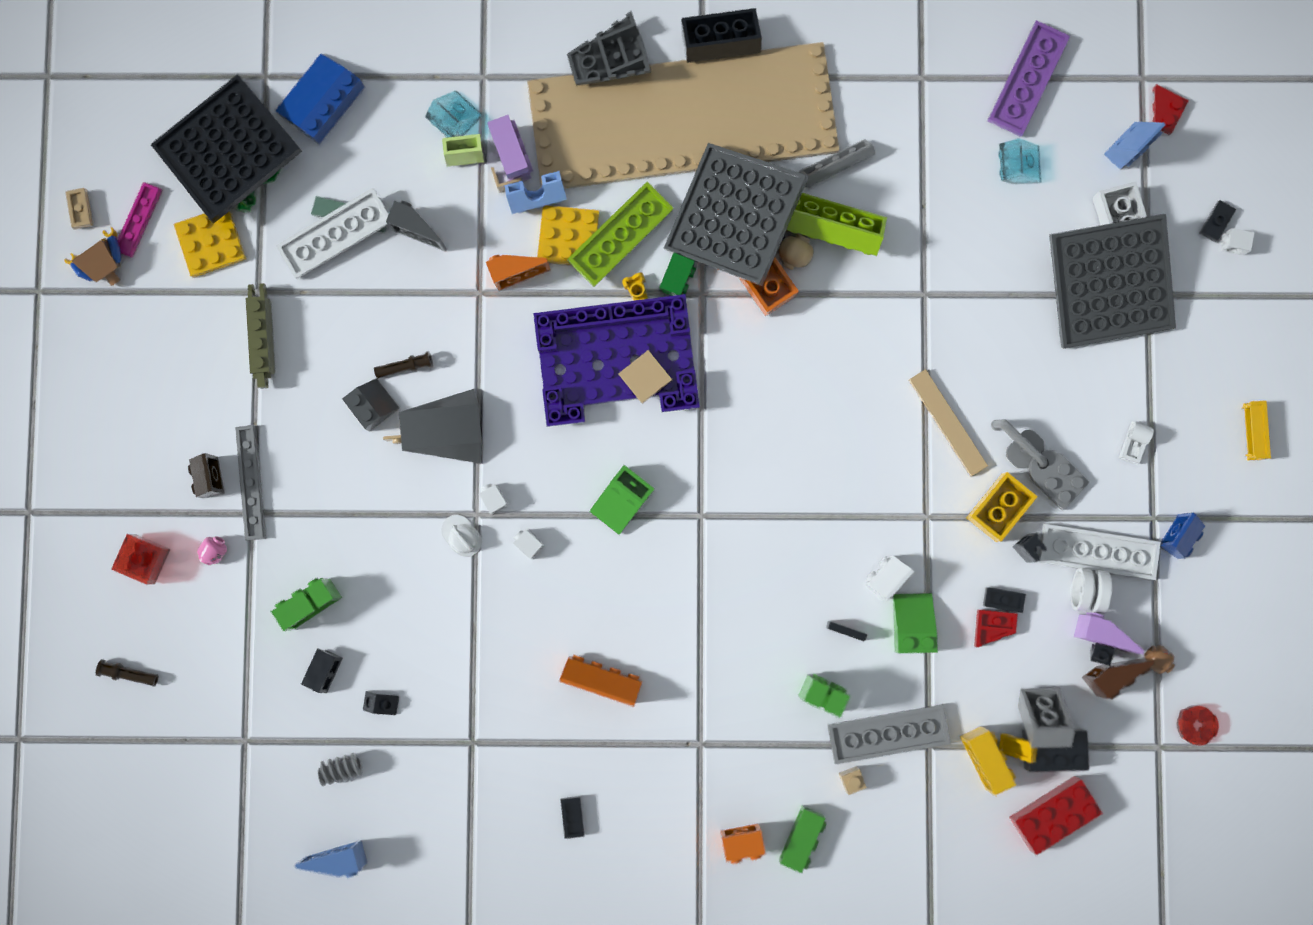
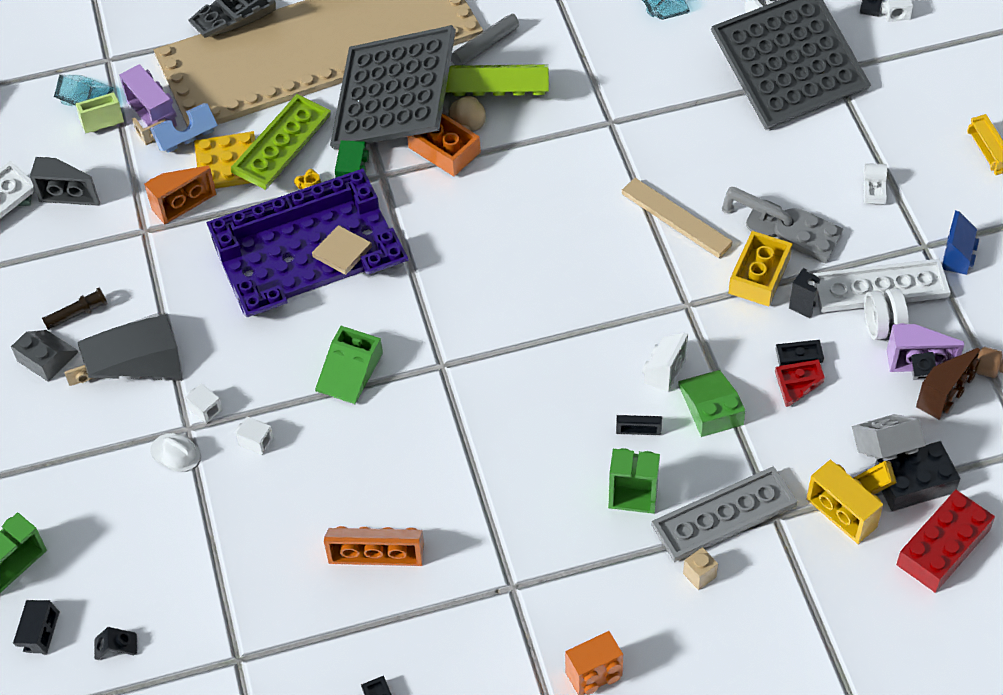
camera: 20 degrees left, 30 degrees down
(802, 839) = (665, 648): bright green brick -> none

